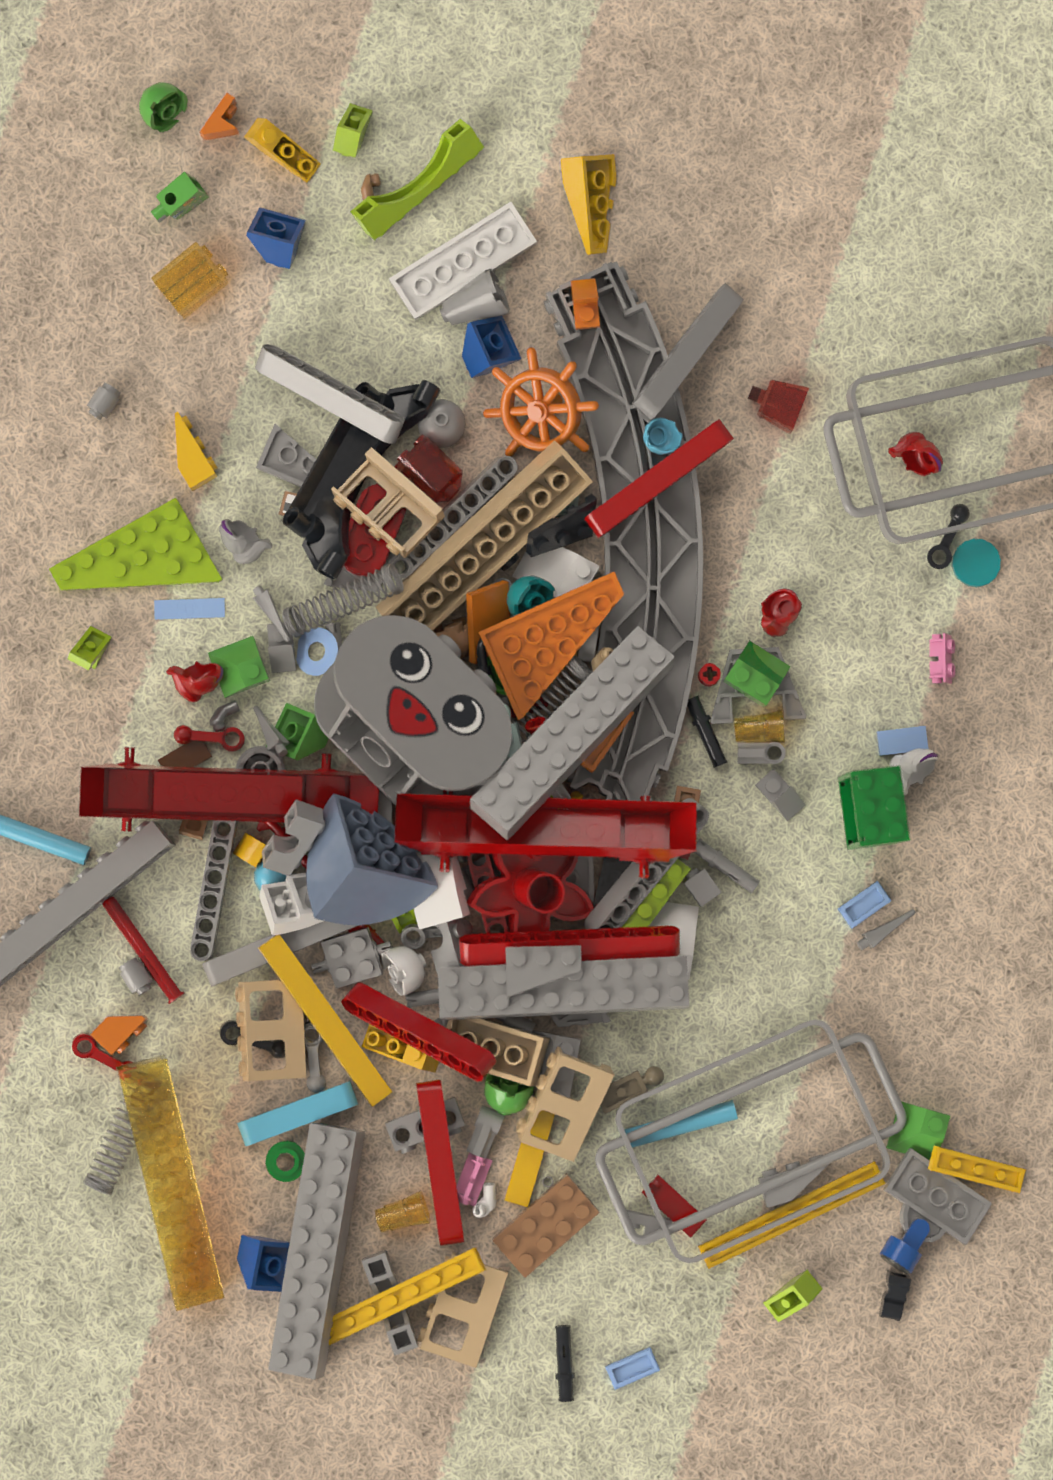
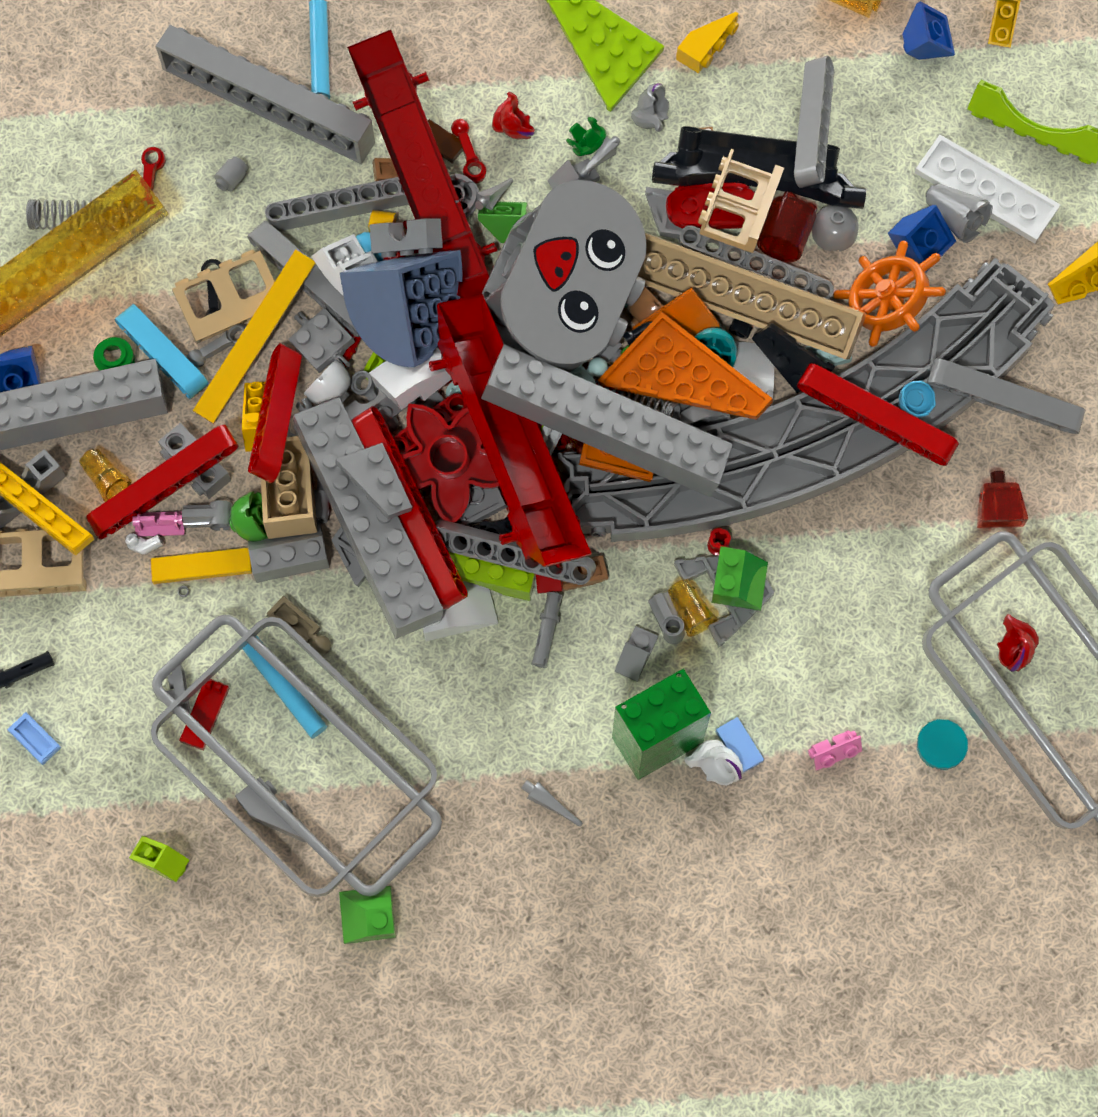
camera: 70 degrees right, 15 degrees down
(89, 648) = (500, 28): lime slope -> none
(116, 1030) = (174, 177): orange slope -> none
(142, 949) = (256, 172): red axle -> none
(189, 608) = (572, 95): light blue piece -> none
(221, 713) = (498, 157): flat silver arm -> none
(241, 666) = (541, 153): bright green slope -> none
(246, 618) = (586, 141): none -> green piece
(285, 458) = (741, 113): light grey wing -> none
(351, 130) = (1051, 56): lime slope -> none
(369, 182) = (1014, 89): medium nougat arm -> none
(386, 578) = (672, 217): light grey piece -> none
(545, 1225) = (140, 602): medium nougat brick -> none
(579, 1112) = (257, 582): tan window -> none
(585, 304) = (1002, 290): orange slope -> none
(701, 886) = (517, 615): light grey brick -> none
(706, 732) = (665, 561): black pin -> none
(780, 611) = (805, 579): red hair -> none
(837, 1185) = (197, 798): yellow tile -> none
(864, 904) = (566, 774): light blue tile -> none
(895, 1297) = (193, 956): black leg -> none
(930, 1208) = (296, 955): light grey plate -> none
(959, 514) = (951, 708): black piece -> none
(976, 1169) = (352, 985): yellow tile -> none

